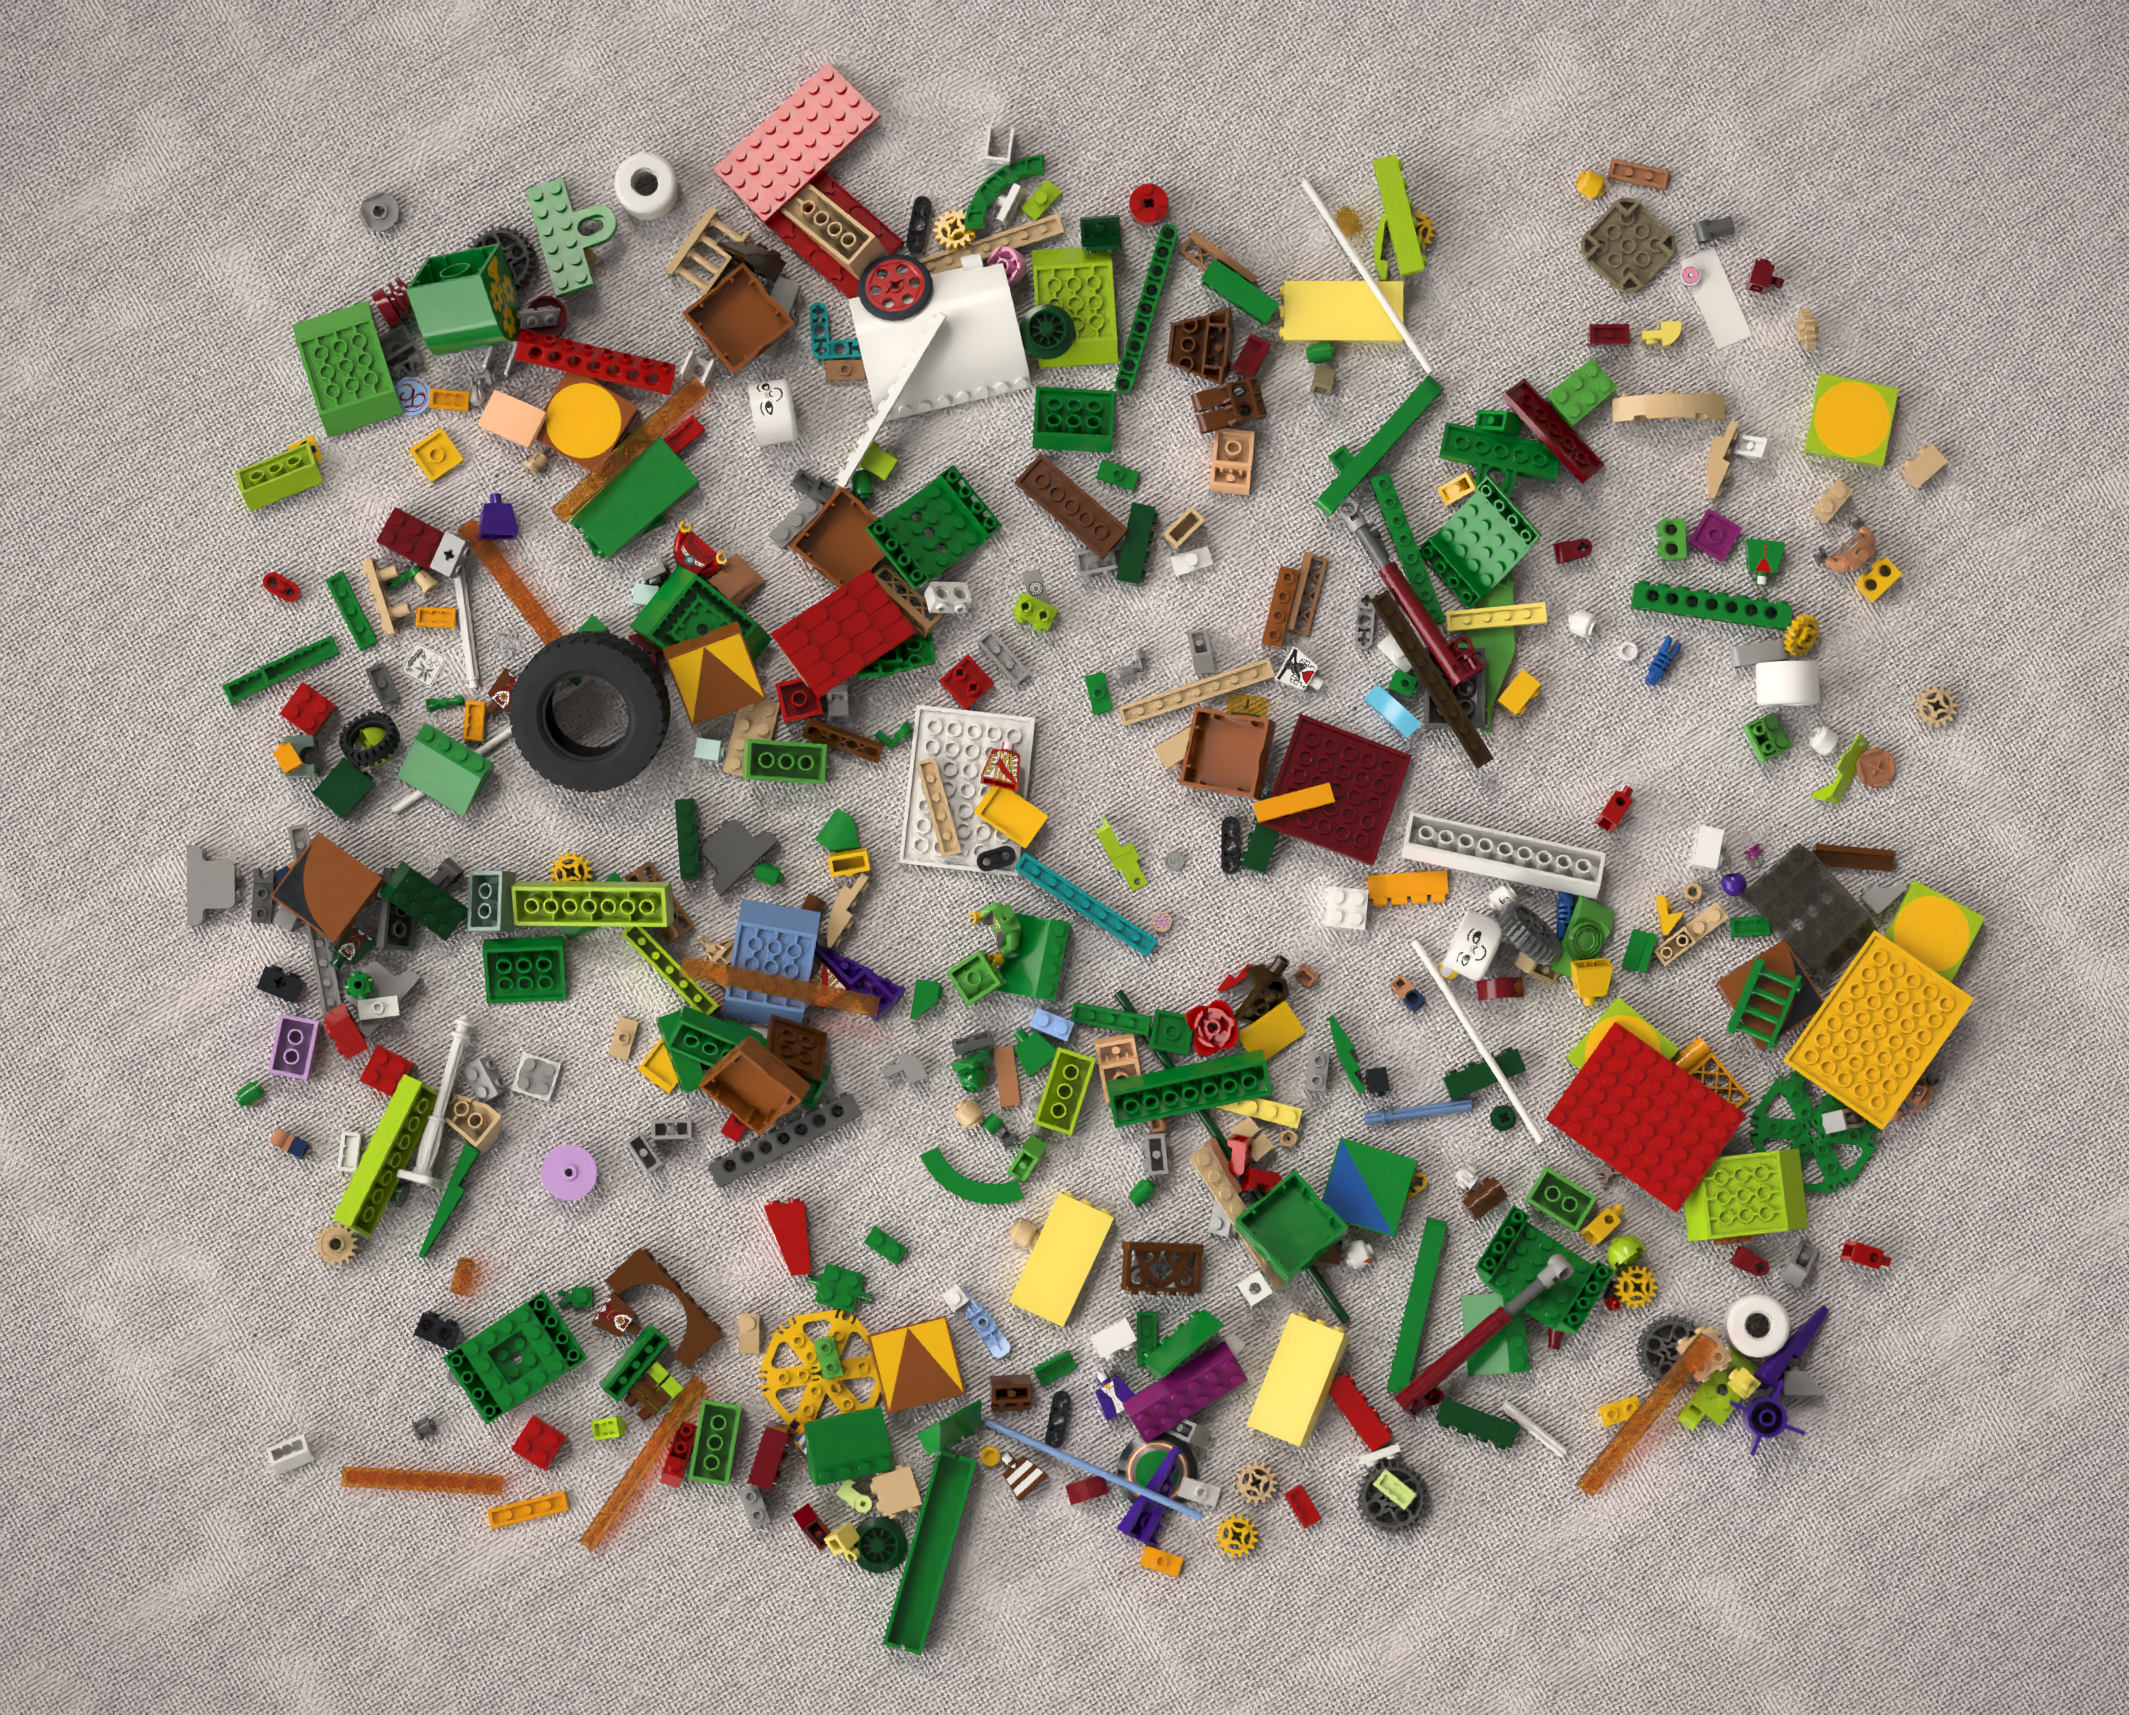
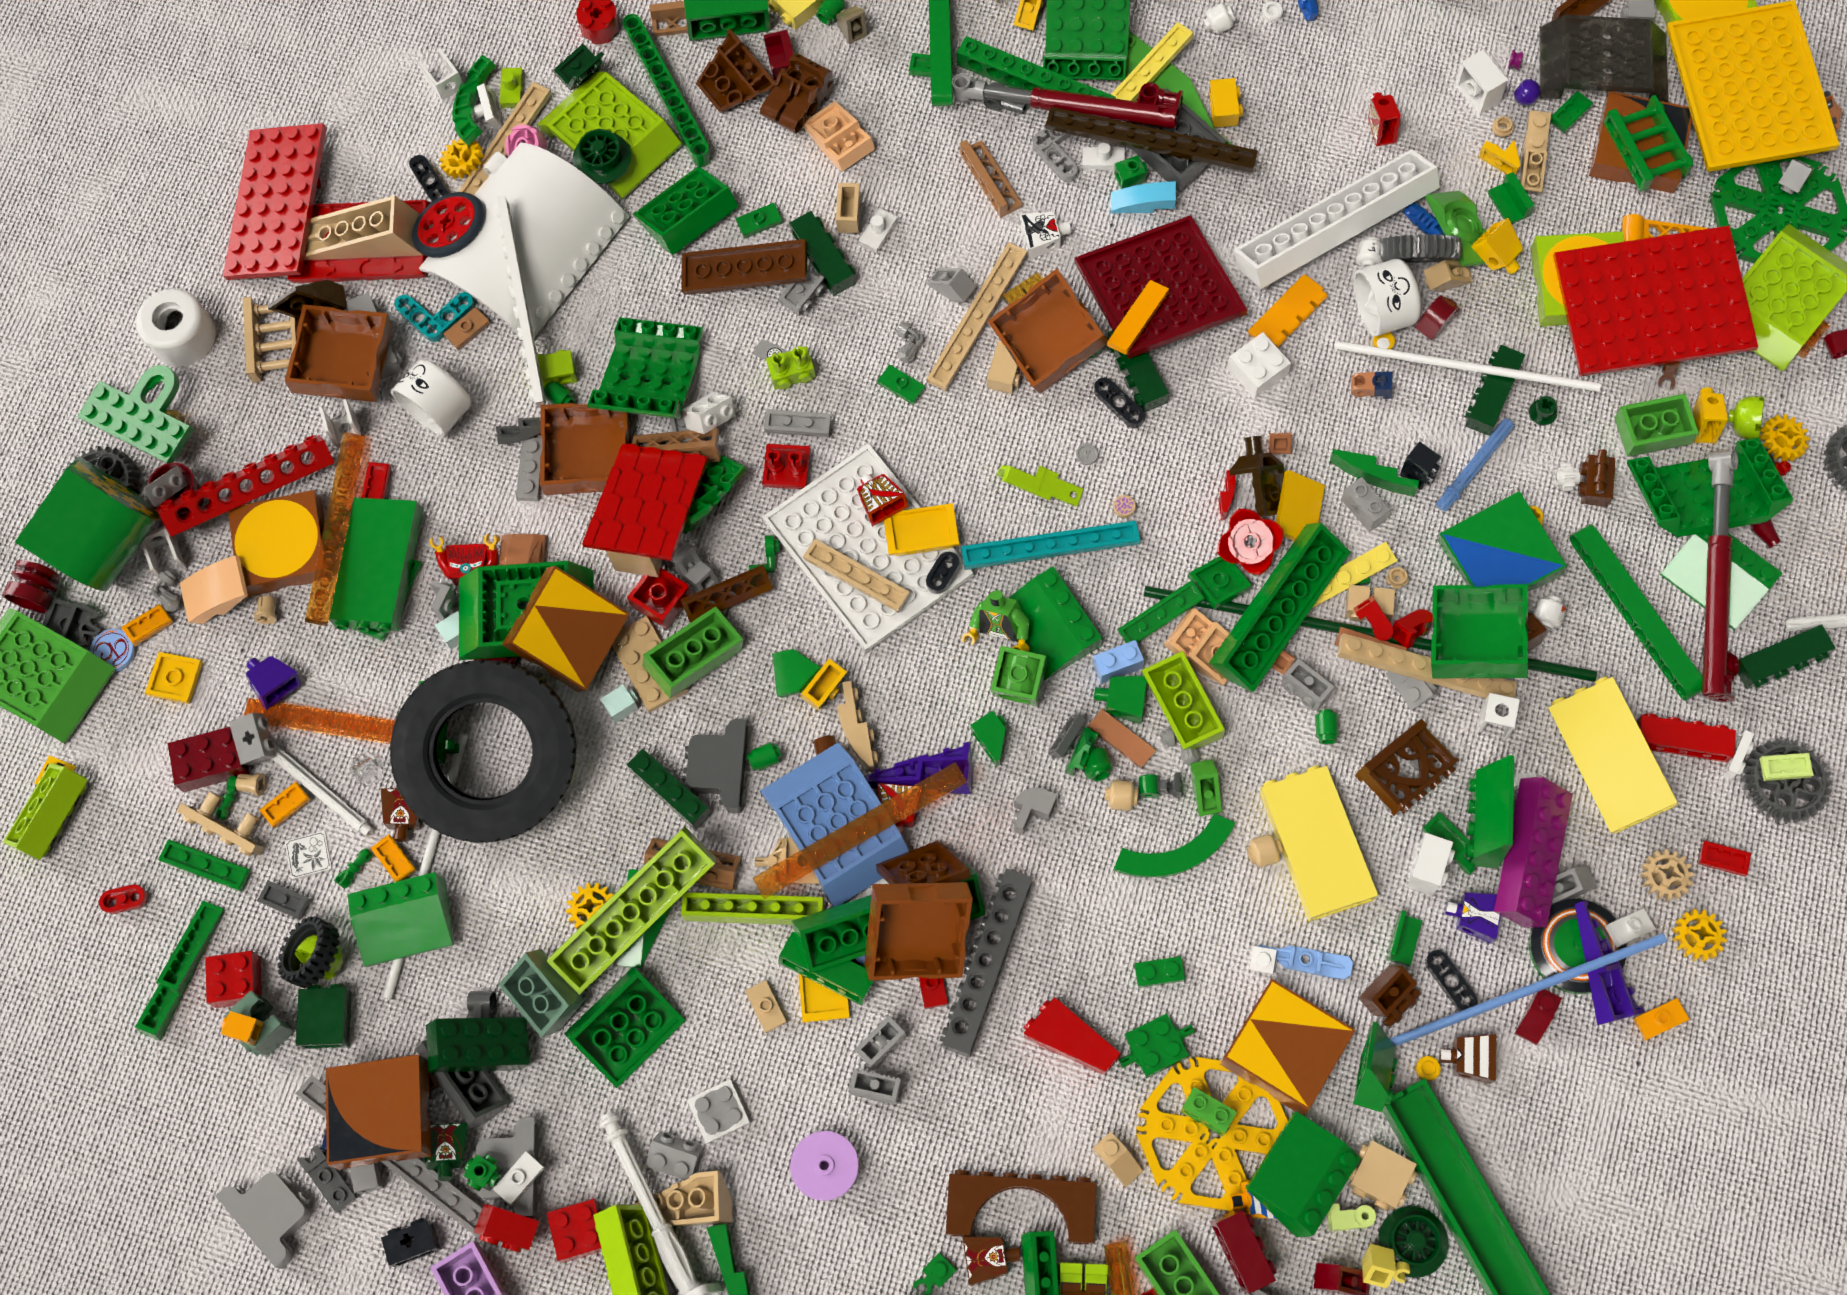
camera: 35 degrees left, 15 degrees down
(1280, 607) = (980, 200): dark orange brick -> none

